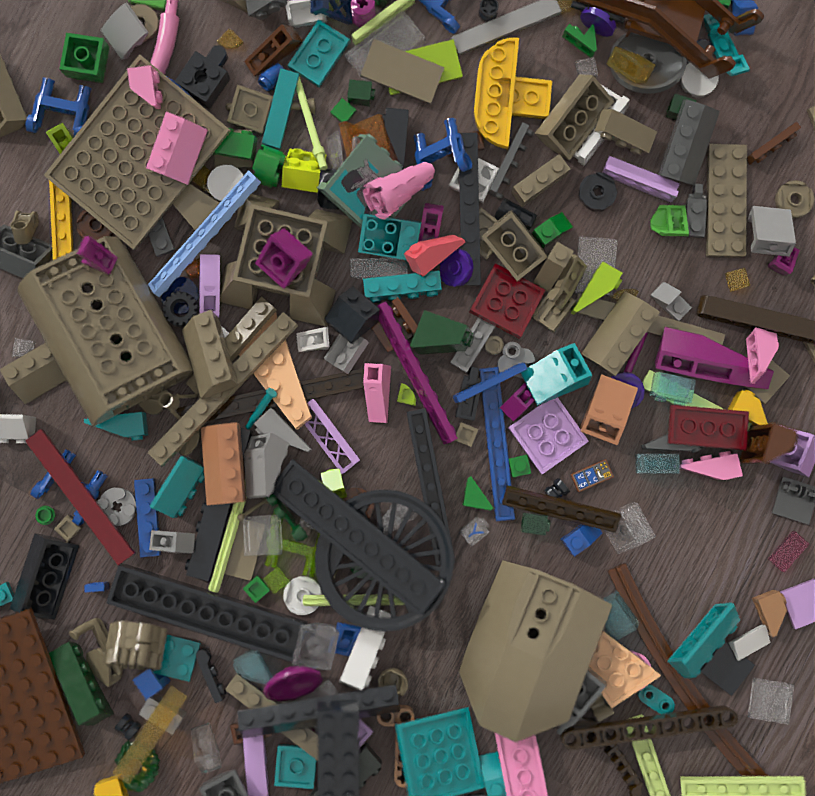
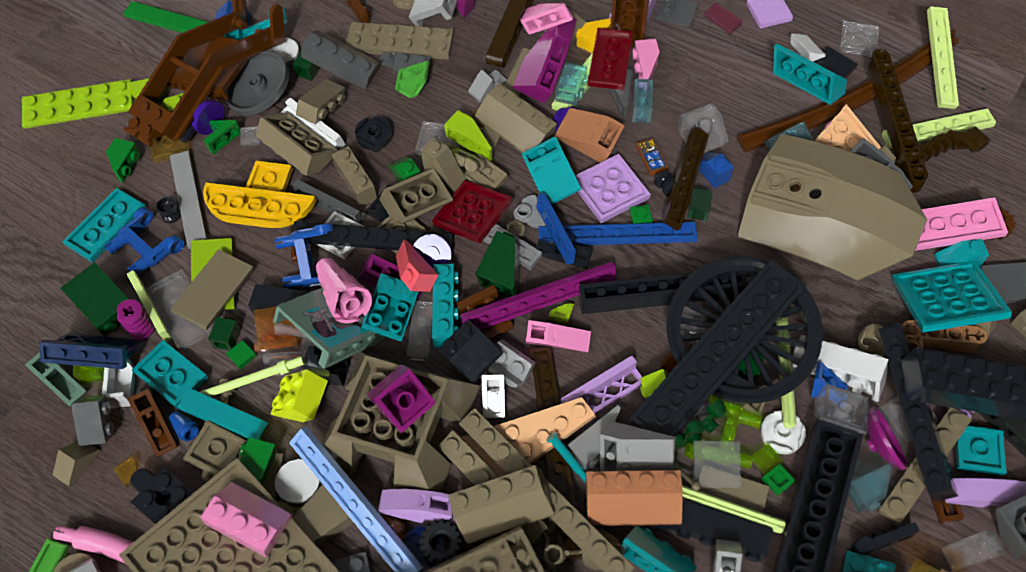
camera: 80 degrees left, 25 degrees down
(144, 83) = (159, 548): bright pink slope -> none
(267, 165) = (283, 427): green brick -> none
(466, 434) = (606, 256): dark tan tile -> none
(474, 496) = (670, 254): green slope -> none
(475, 530) = (706, 253): clear brick -> none
(517, 402) = (576, 208): magenta slope -> none
(630, 65) = (257, 90): clear yellow slope -> none
(641, 179) = (368, 99): lavender fence -> none
(656, 699) = (870, 117): teal plate -> none
(737, 279) = (473, 37): clear yellow tile -> none
(771, 610) = (777, 30): medium nougat slope -> none

